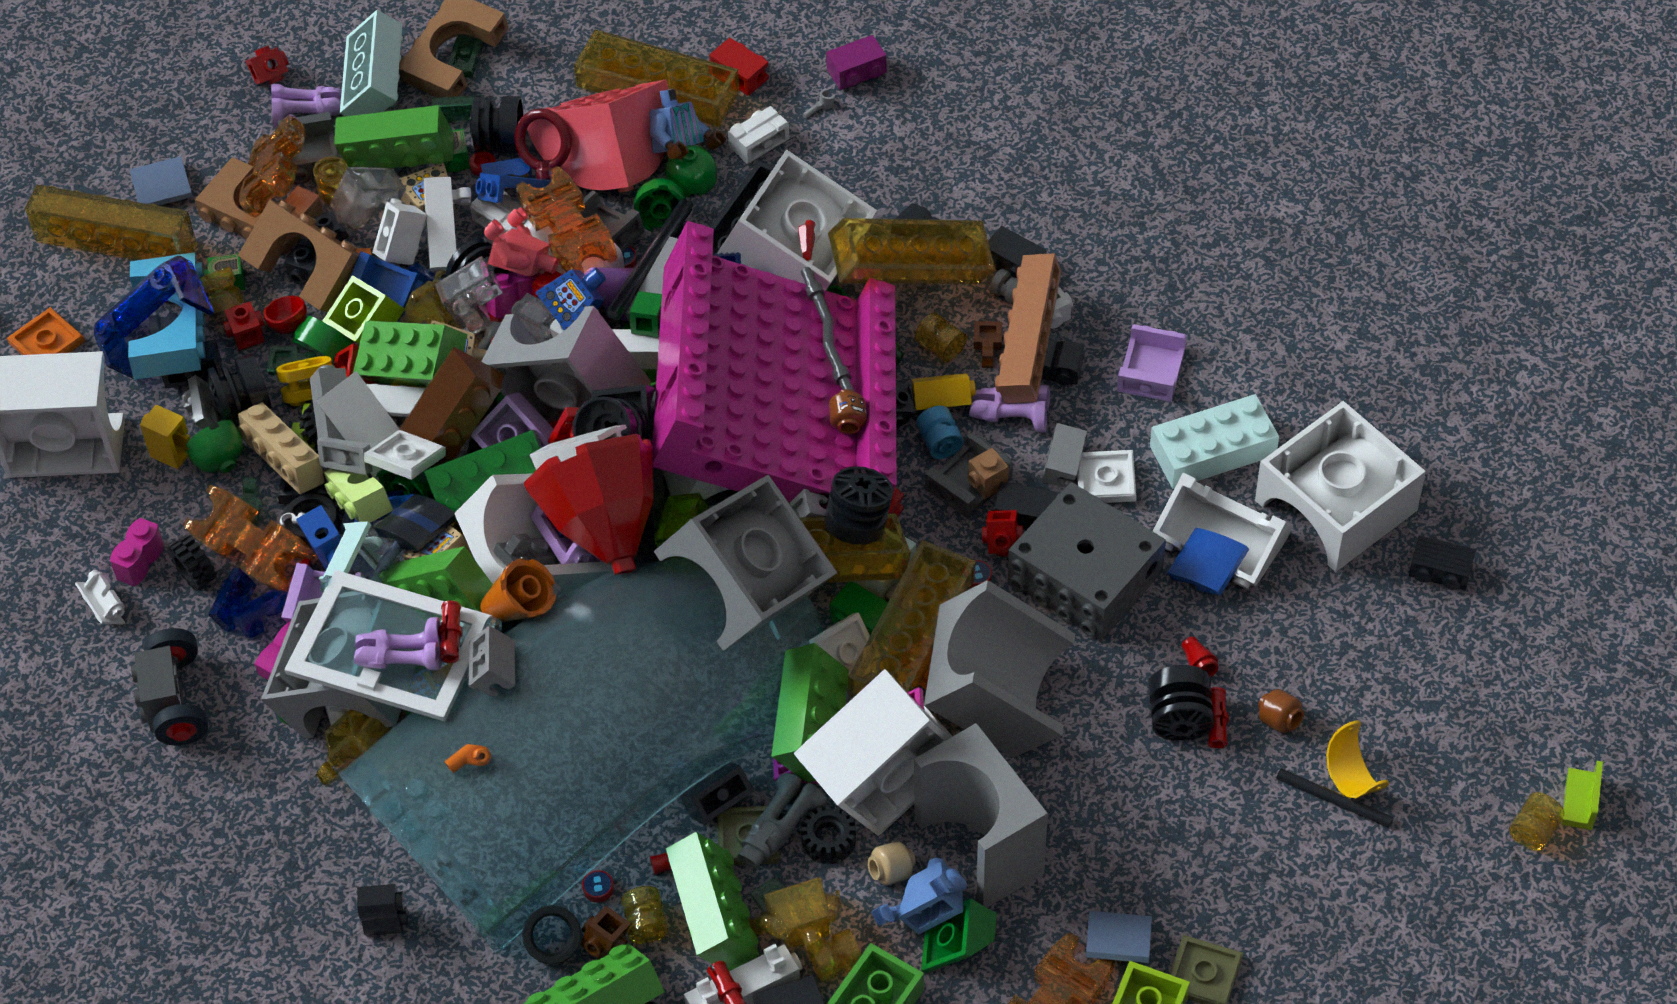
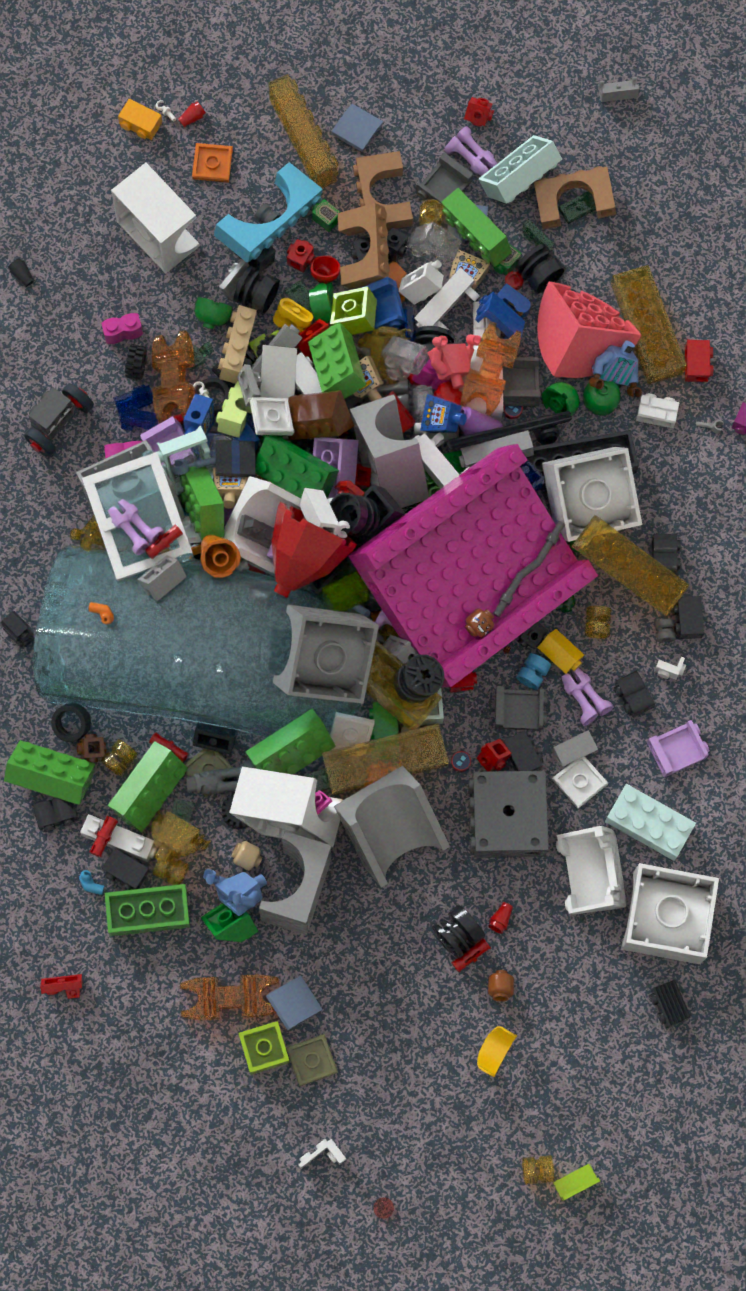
camera: 45 degrees right, 20 degrees up
(105, 606) = (81, 336): white hinge -> none
(145, 298) = (283, 200): clear blue windscreen -> none
(165, 436) = (197, 280): yellow piece -> none
(221, 289) = (308, 225): clear yellow wheel -> none
(272, 165) = (402, 183): clear orange piece -> none
(542, 167) = (532, 320): dark red piece -> none
(597, 886) = (120, 720): tile -> none
(646, 314) = (461, 462): green brick -> none
(807, 238) = (581, 507): red bar -> none
(987, 337) = (619, 646): reddish brown plate -> none
(987, 472) = (523, 719): medium nougat brick -> none
(1028, 328) = (636, 667): nougat brick -> none
(1208, 561) = (565, 878): blue slope -> none
(1334, 798) = (471, 1051): black piece -> none

